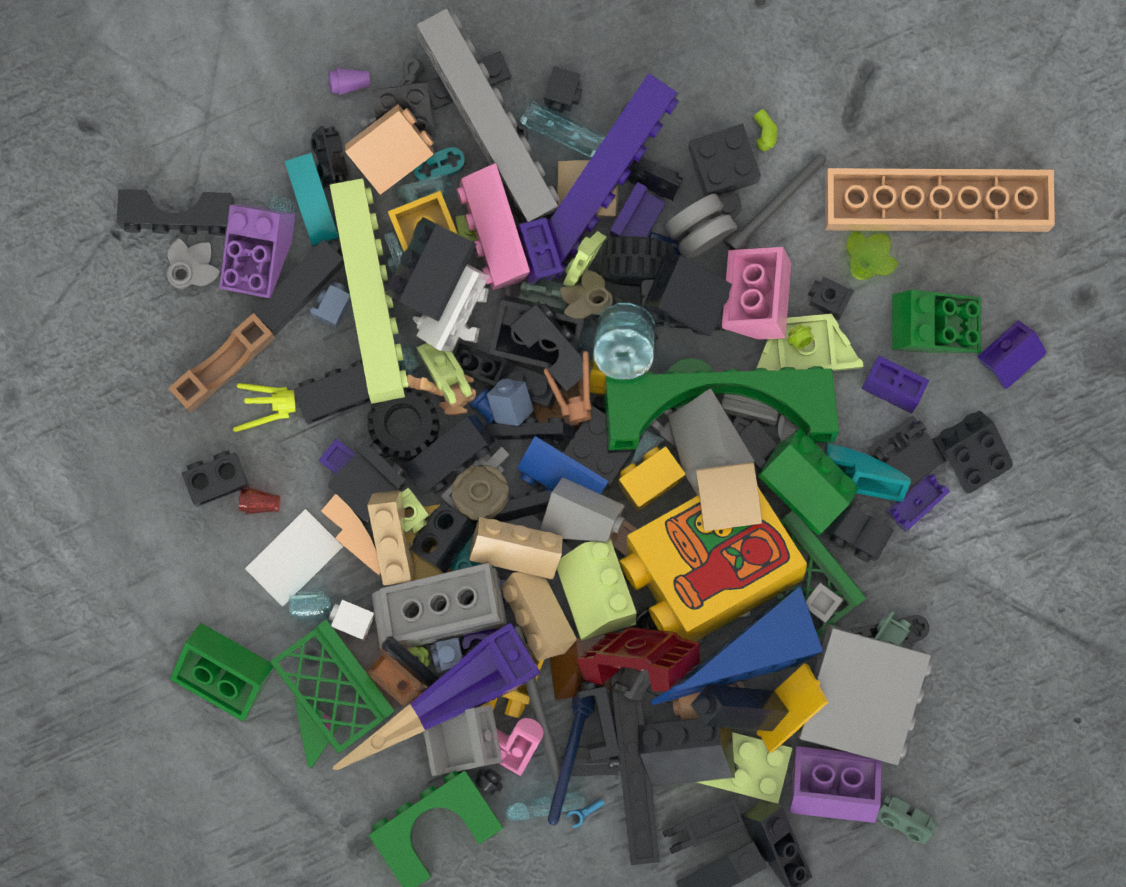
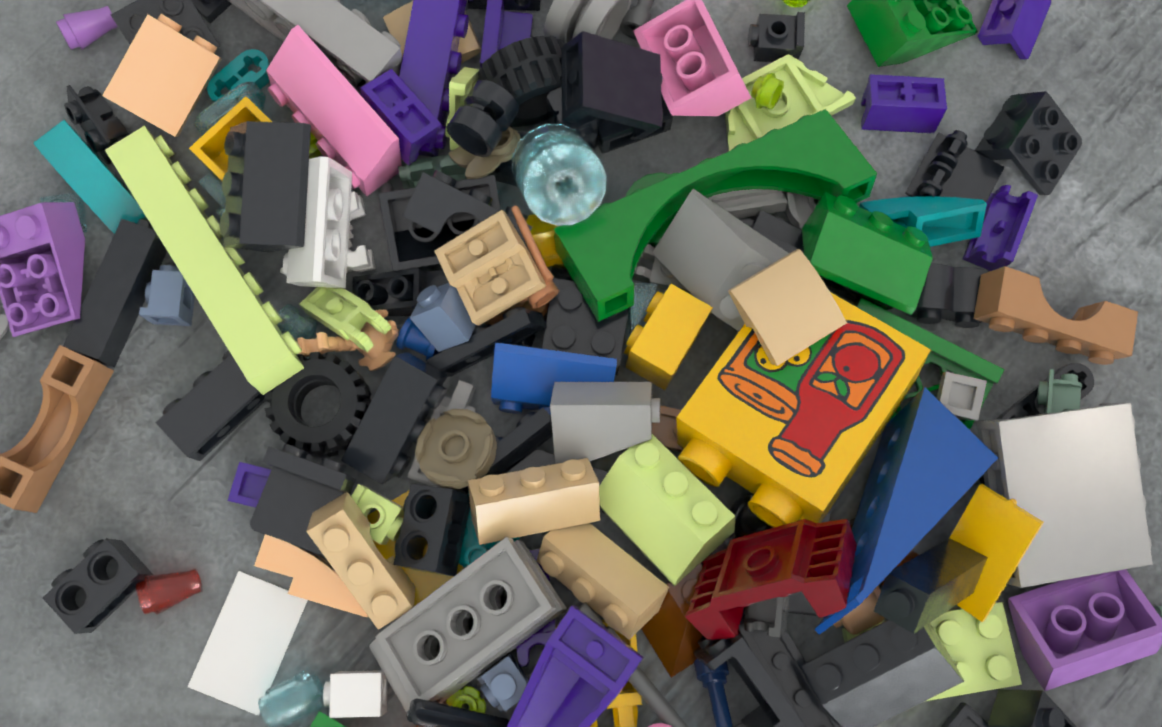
camera: 25 degrees left, 5 degrees down
(282, 401) = (148, 445): neon yellow plant -> none
(552, 385) = (490, 268): none -> tan slope
(593, 280) = (483, 118): none -> black wheel
(893, 556) = (1016, 303): none -> medium nougat arch

